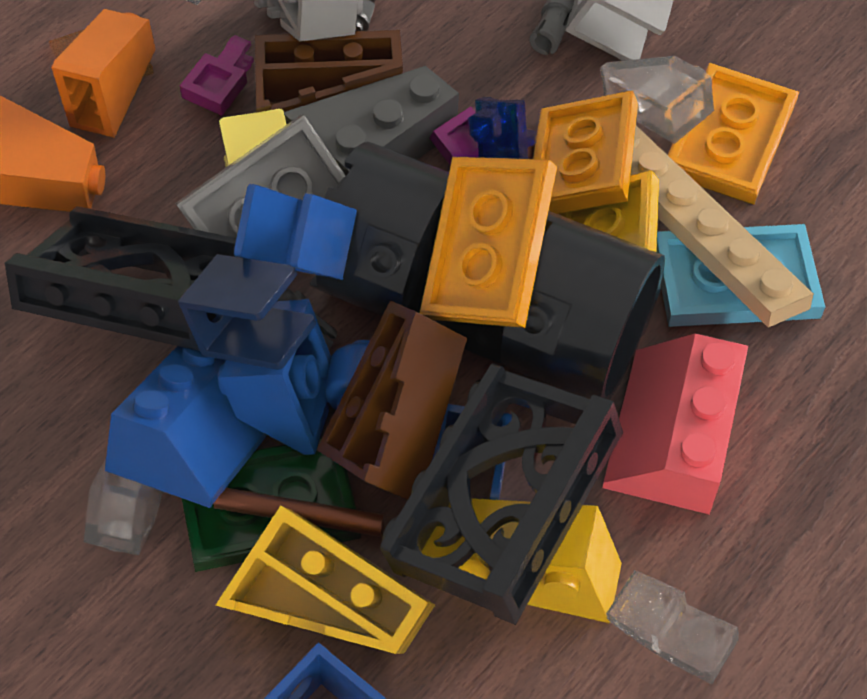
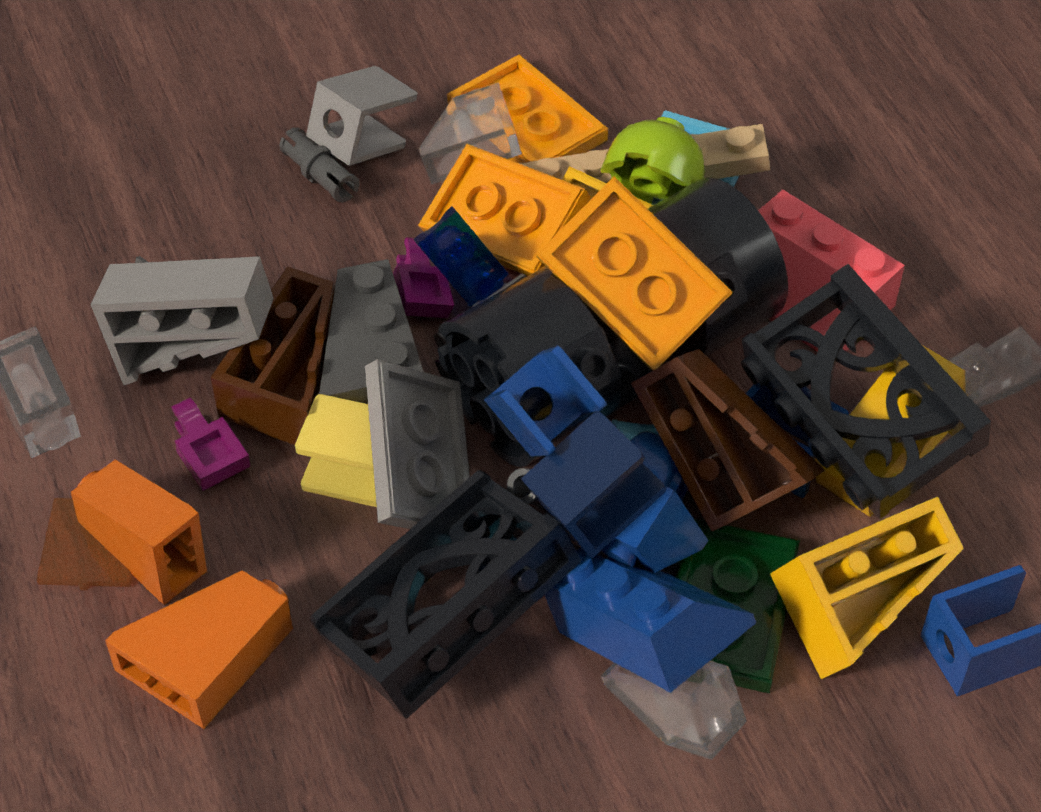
camera: 60 degrees left, 5 degrees down
(318, 514) = (783, 552): copper bar -> none
(688, 223) = (654, 159): none -> lime cylinder

